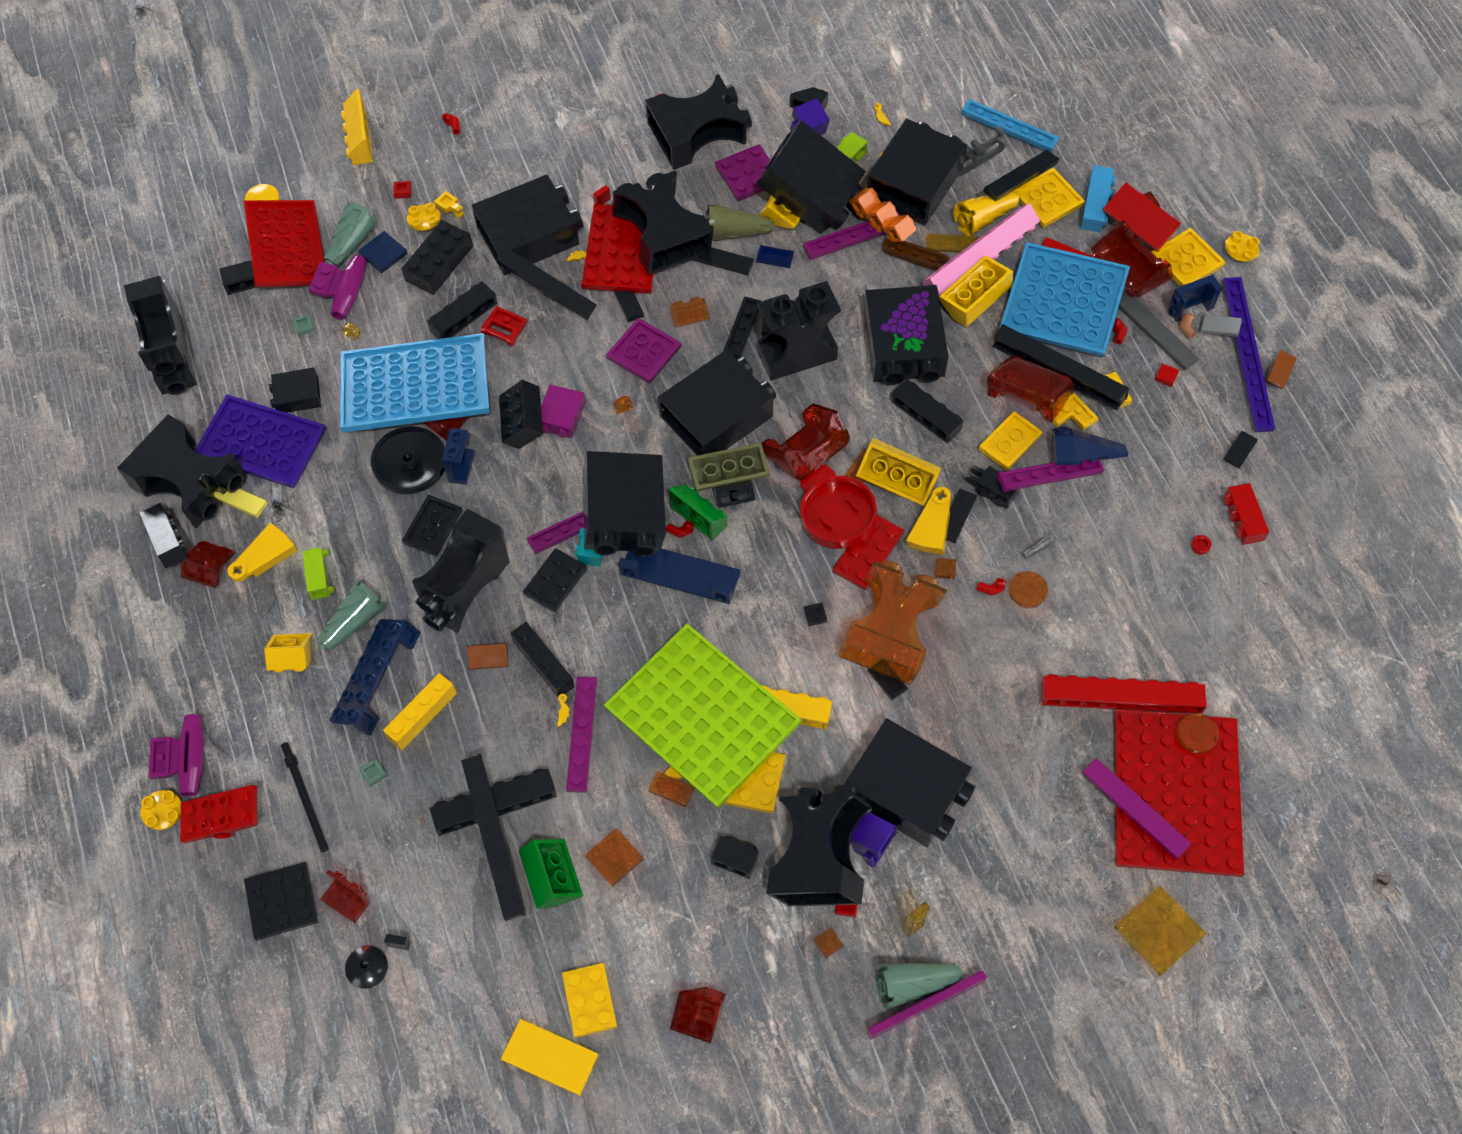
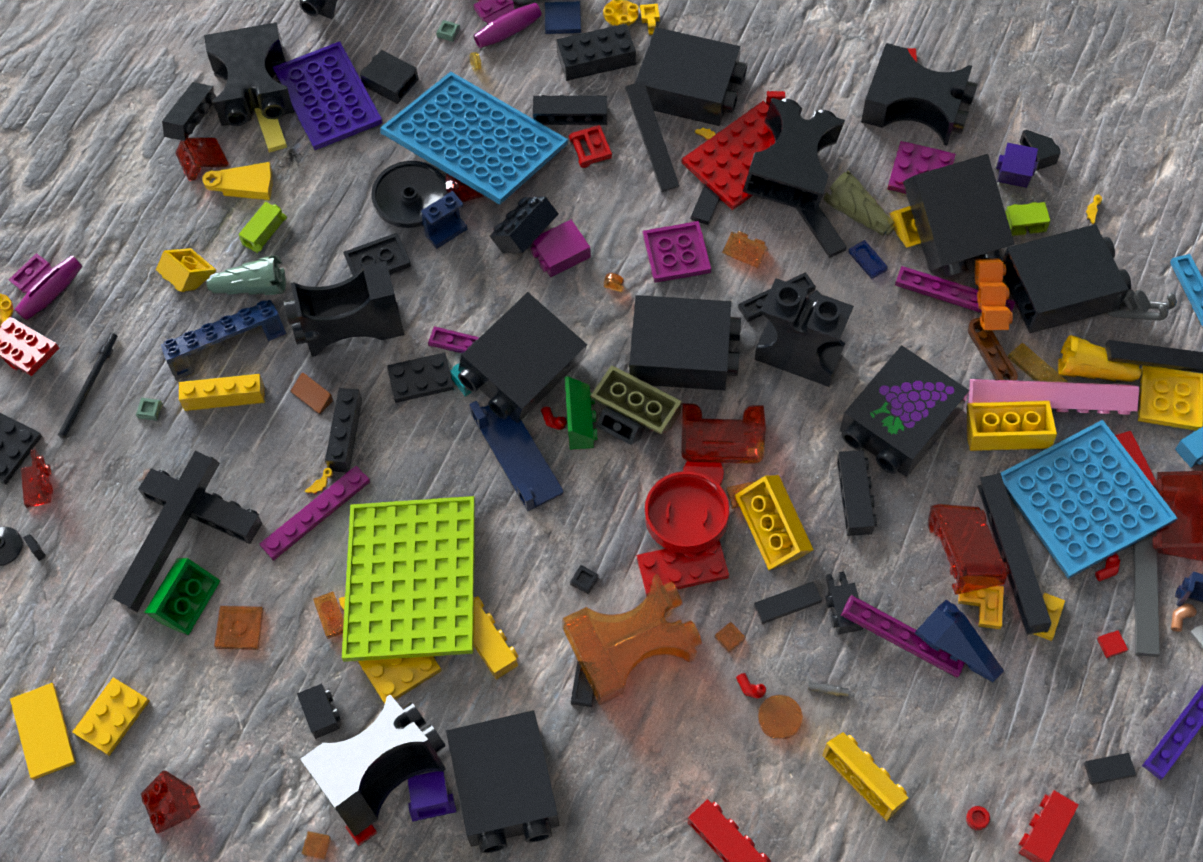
camera: 45 degrees right, 0 degrees up
(932, 525) = (754, 591): yellow piece -> none
(1010, 440) = (901, 579): yellow plate -> none
(1117, 578) = (864, 775): none -> yellow slope

